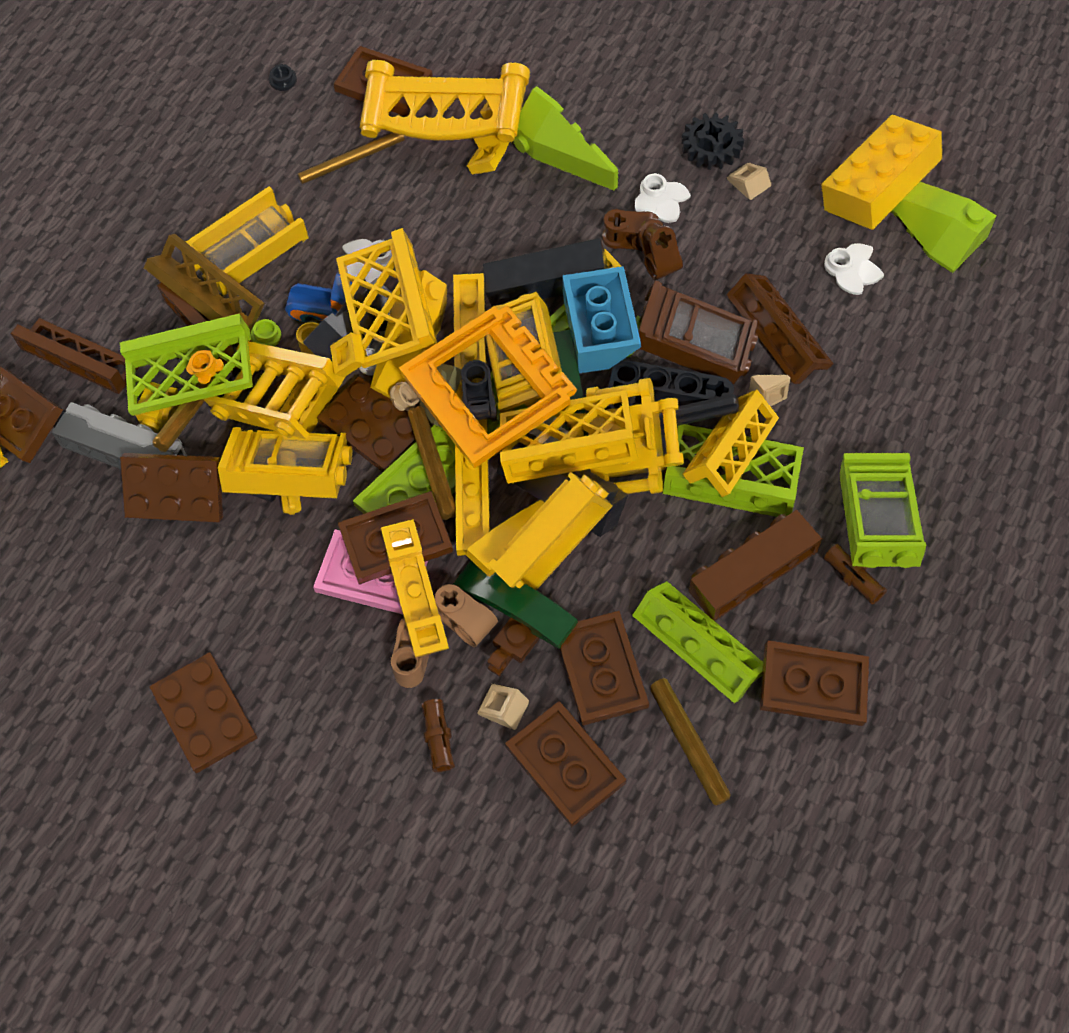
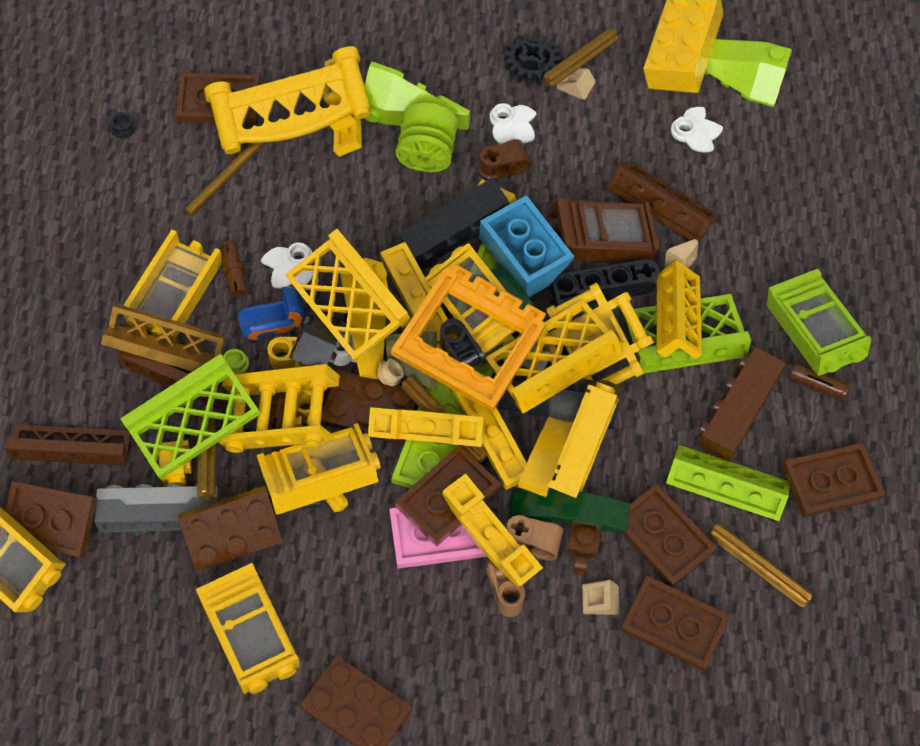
camera: 30 degrees left, 0 degrees up
(140, 592) = (248, 629): none -> yellow door
(199, 361) = (209, 403): light orange plate -> none
(311, 245) = (233, 269): none -> reddish brown pin
(347, 354) = (340, 355): yellow plate -> none
(405, 459) = (426, 426): none -> yellow slope
(437, 735) = (562, 644): reddish brown pin -> none
(560, 180) = (427, 137): none -> lime wheel
(659, 249) = (538, 168): reddish brown piece -> none
(705, 410) = (647, 290): black axle -> none
(763, 155) = (580, 58): none -> pearl gold axle

